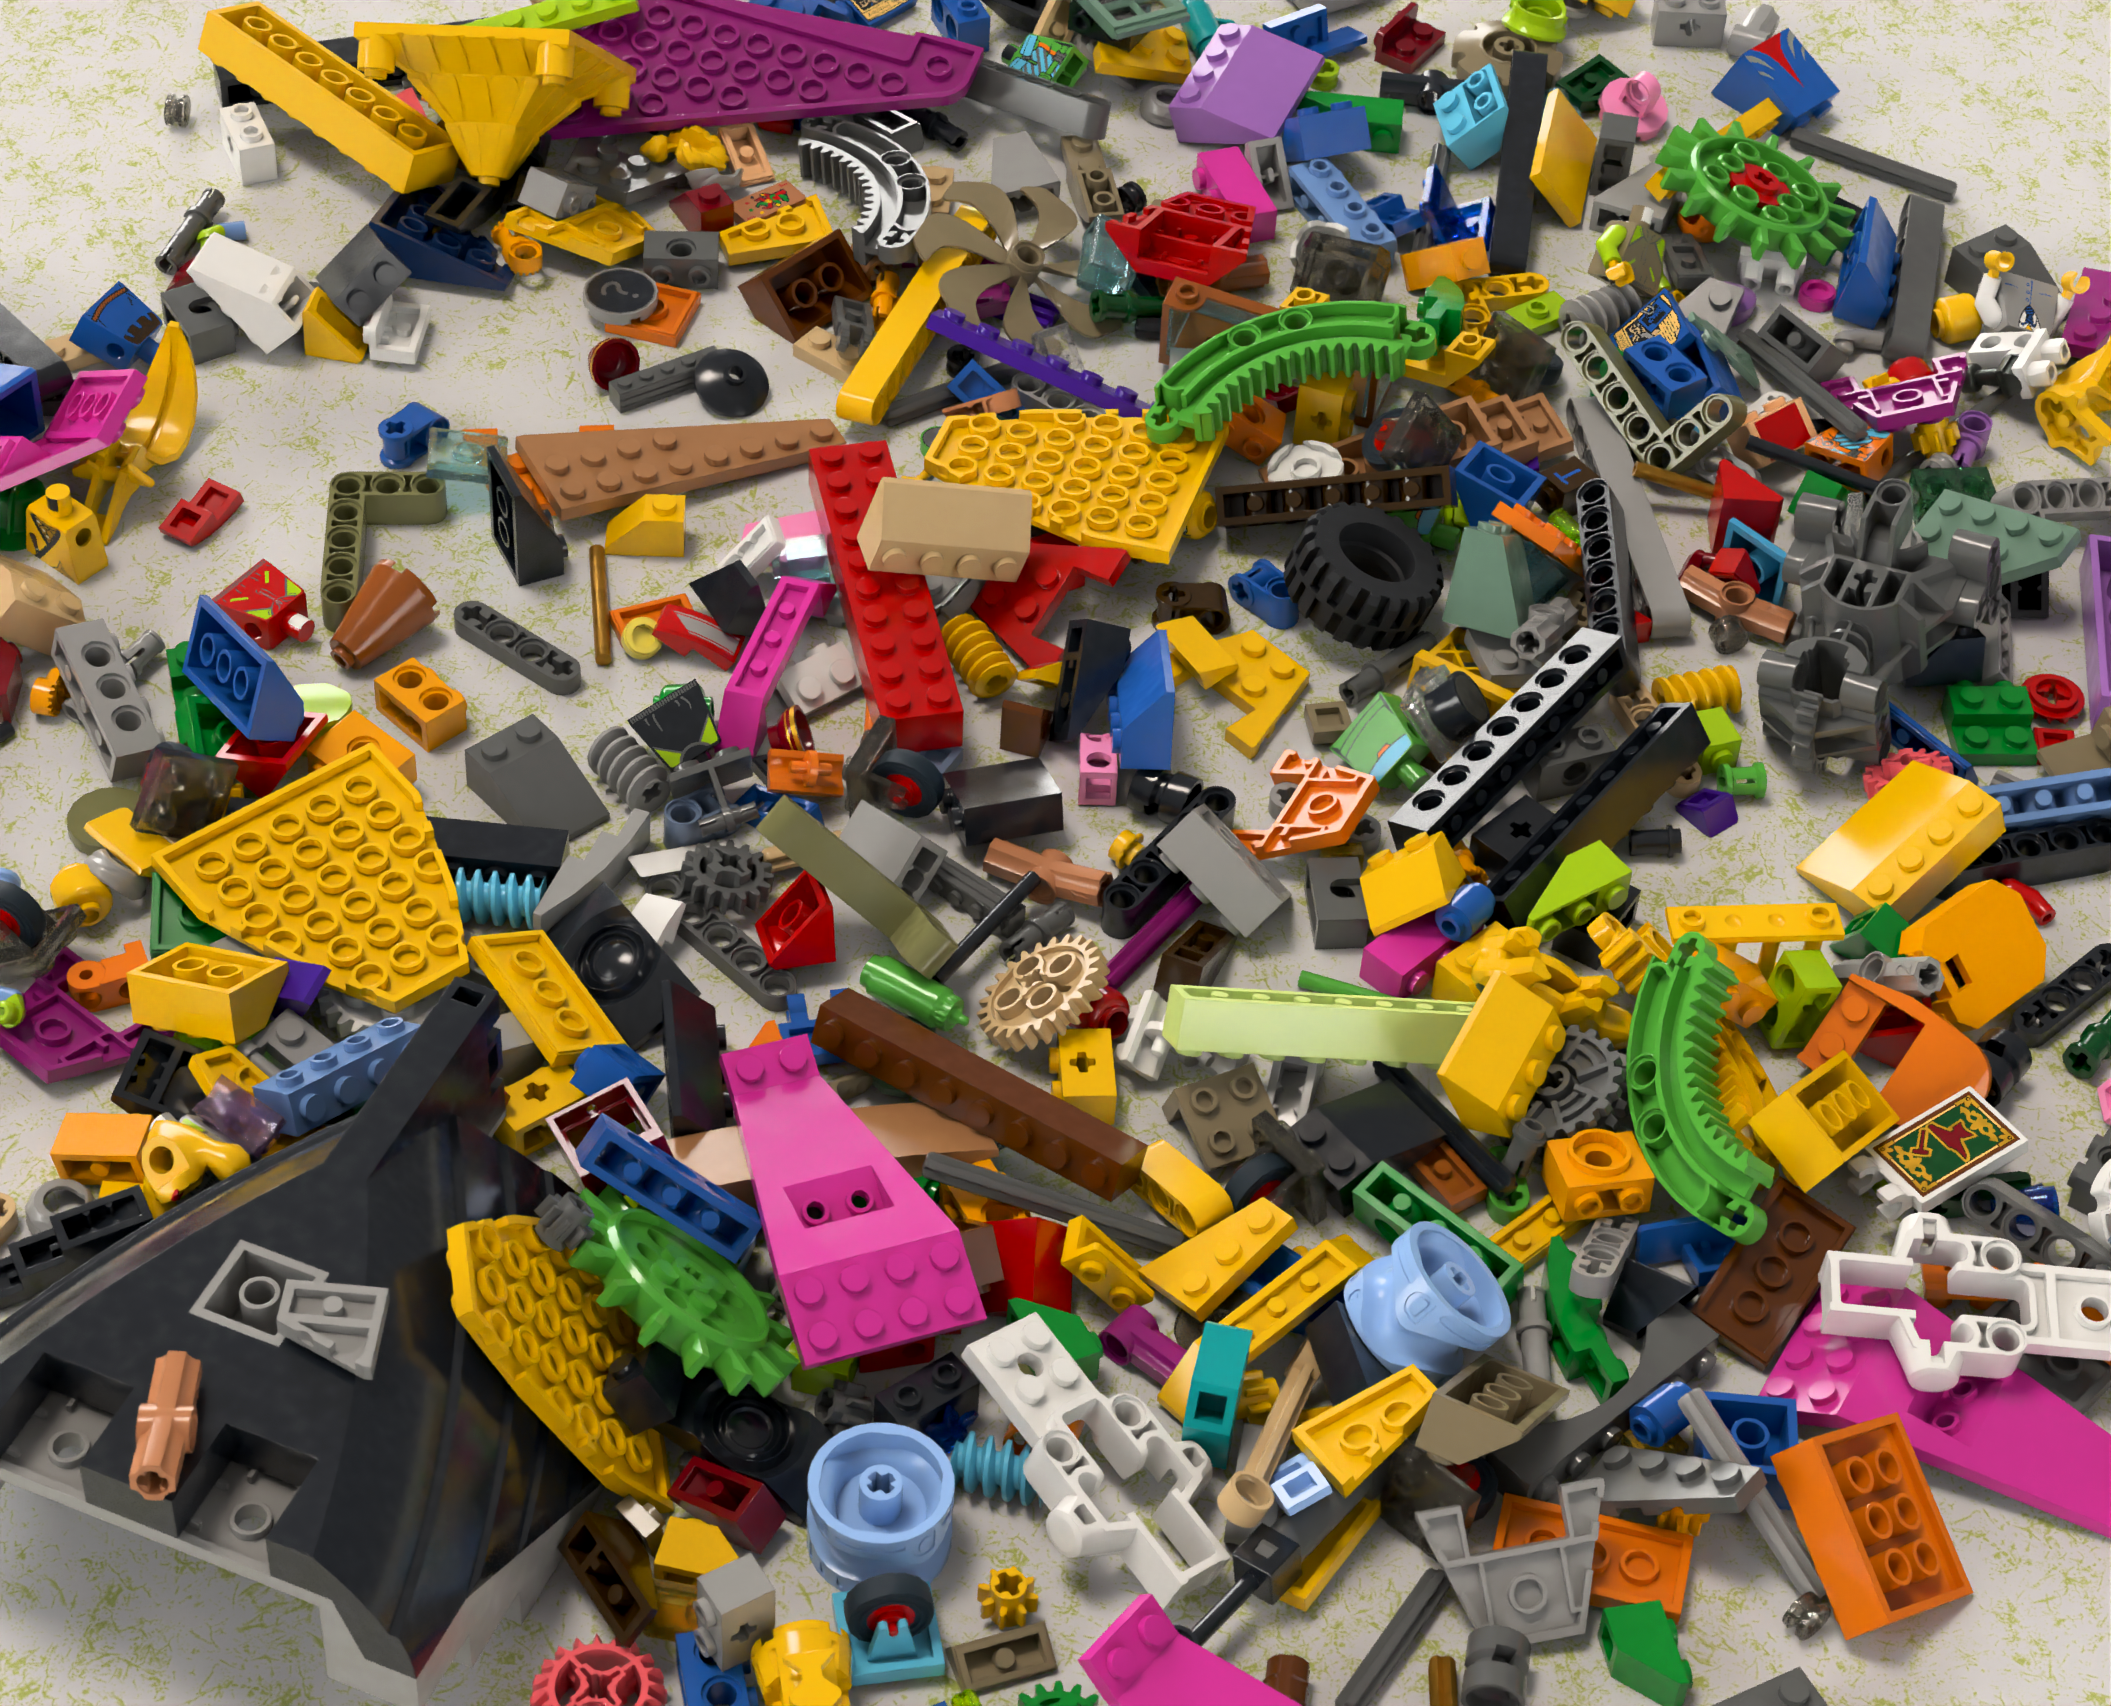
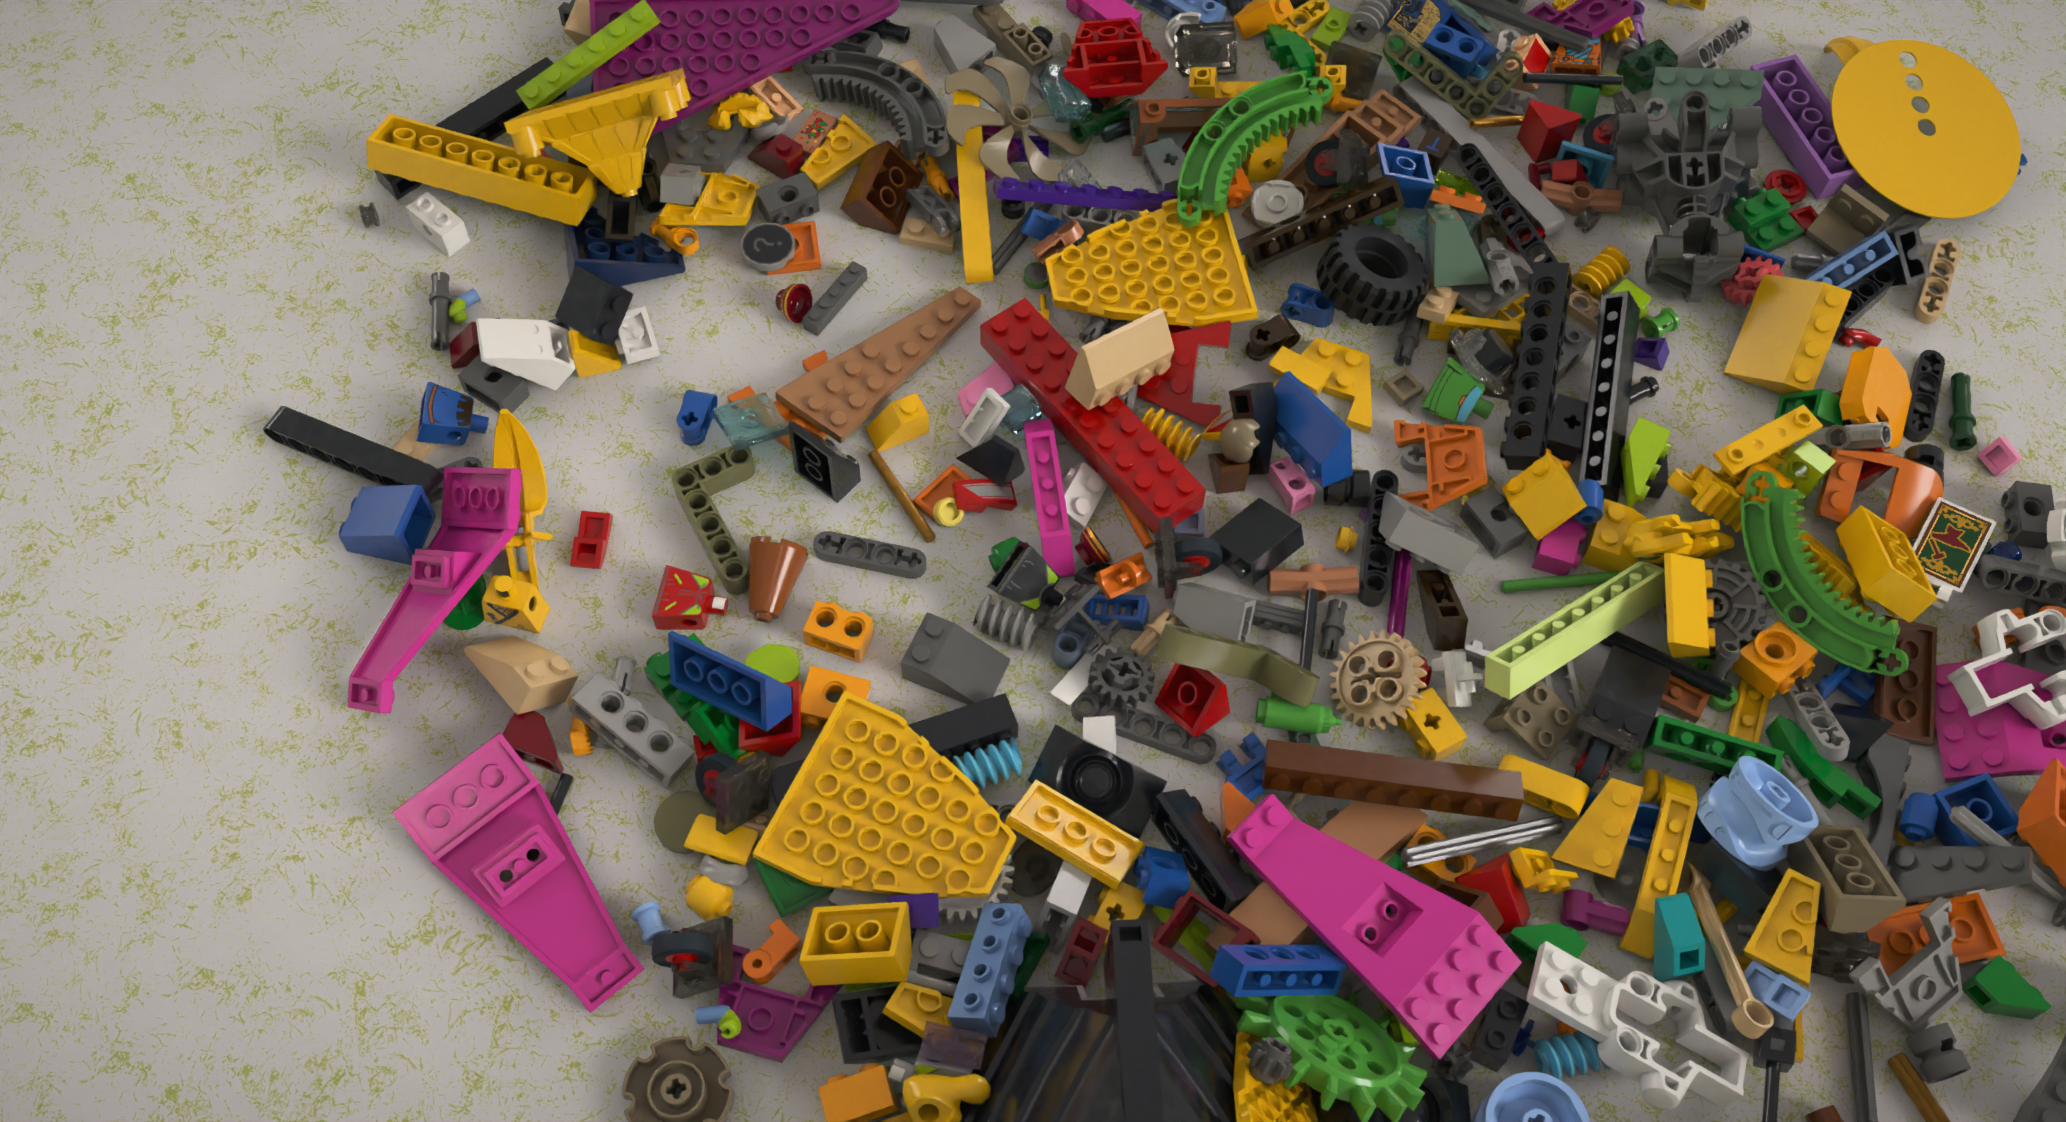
camera: 25 degrees left, 15 degrees up
(604, 863) = (1033, 723): light grey slope -> none
(729, 395) = (873, 291): black dish -> none
(1044, 674) = (1239, 440): none -> dark tan hair
(1334, 1219) = (1637, 761): none -> bright green piece
(1434, 642) = (1438, 304): none -> tan plate

